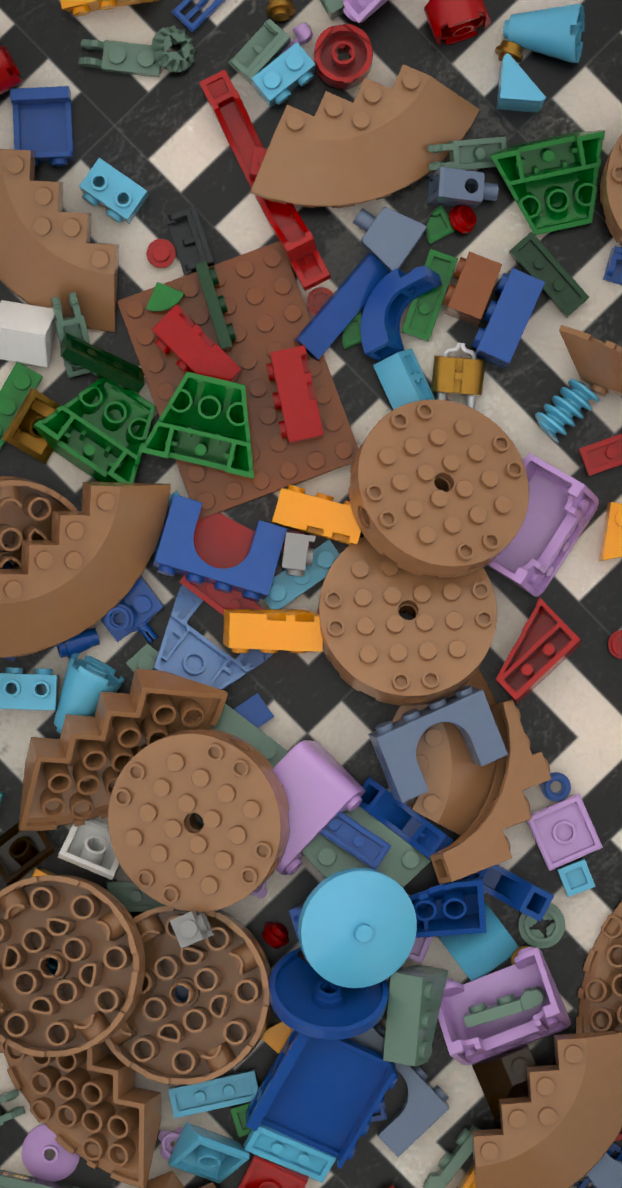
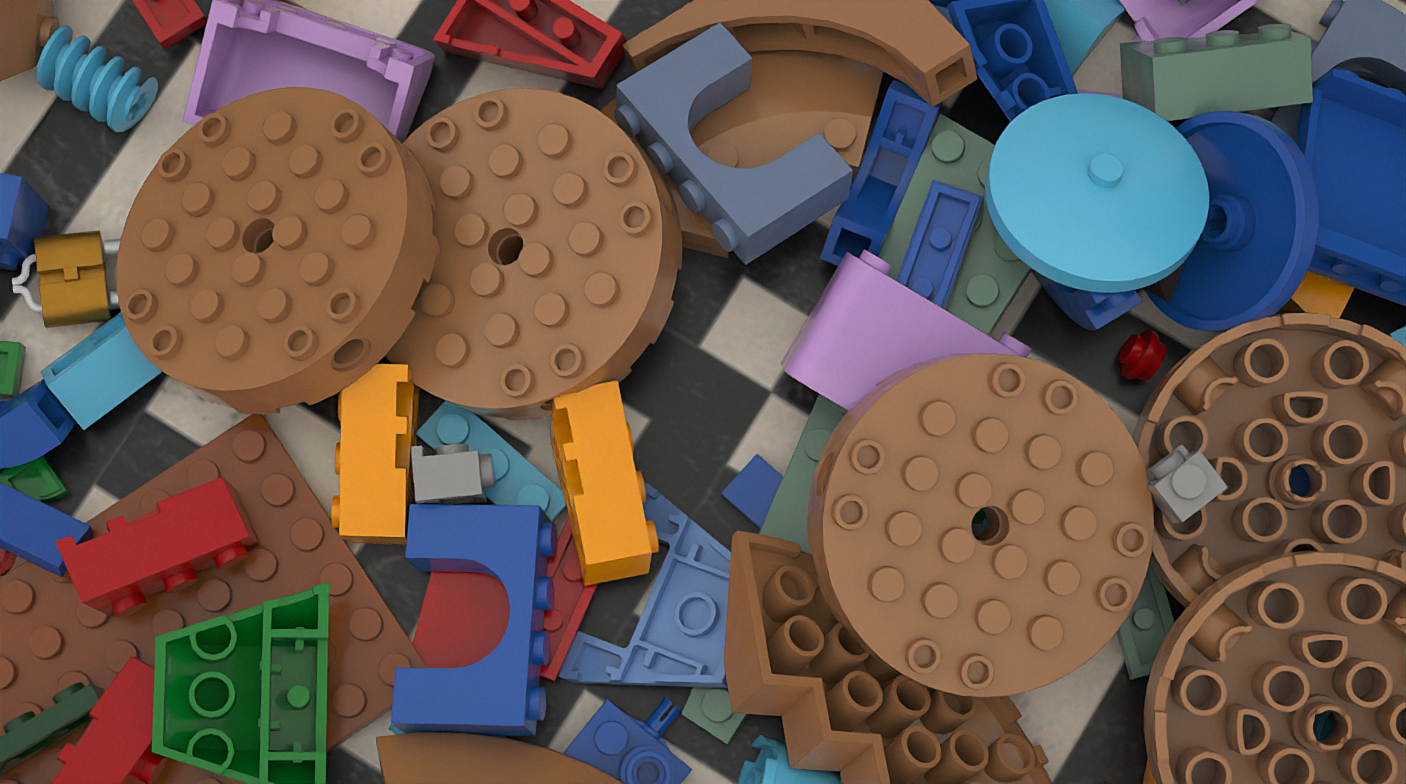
camera: 105 degrees left, 10 degrees down
(91, 849) = (1081, 718): white slope -> none

